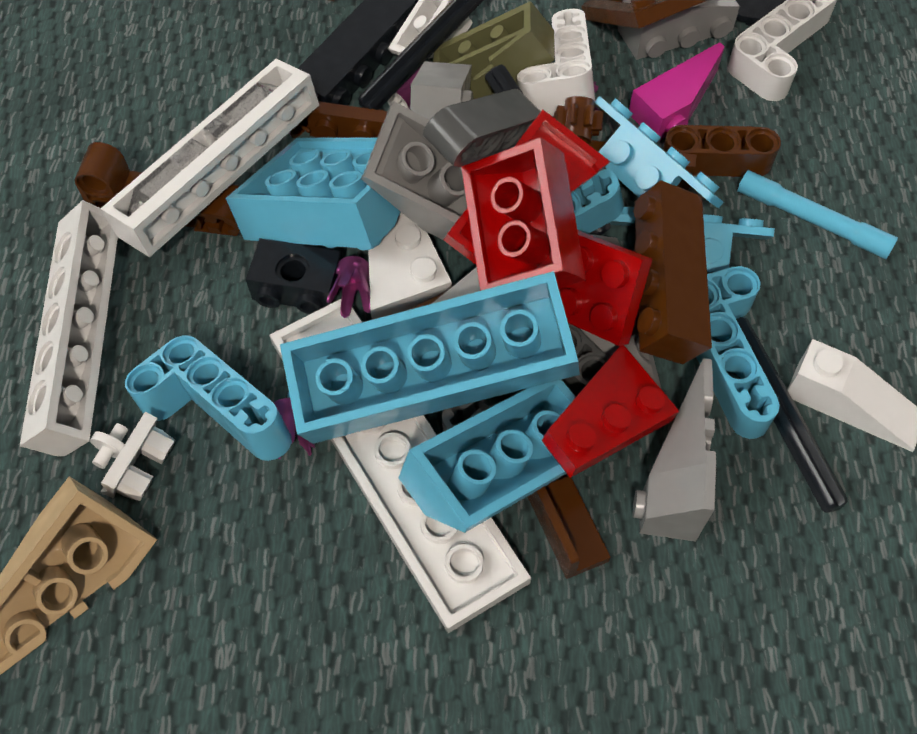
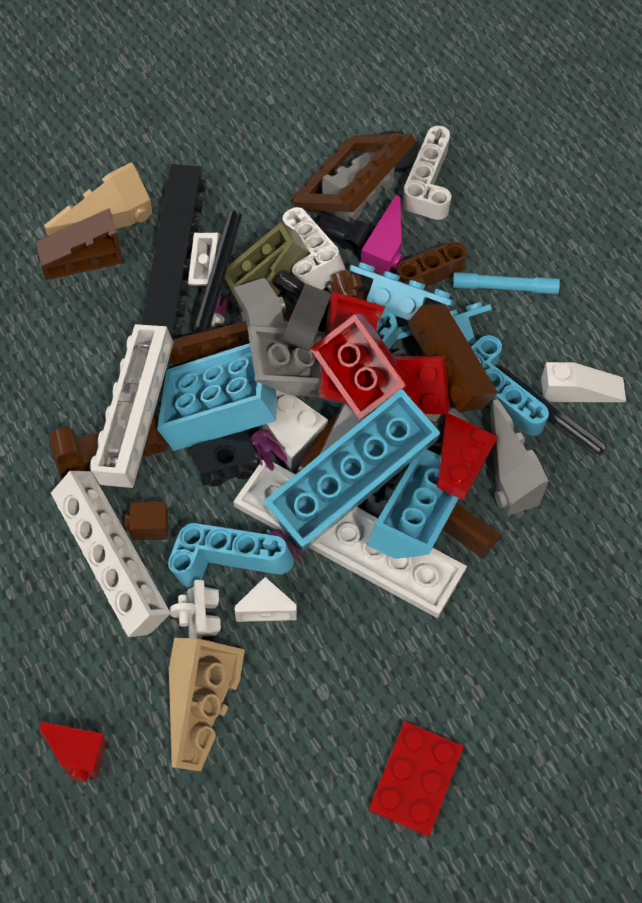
camera: 30 degrees left, 0 degrees up
(149, 310) = (147, 521): none -> reddish brown brick
(220, 489) = (265, 603): none -> white slope
(625, 63) = (349, 235): none -> black piece

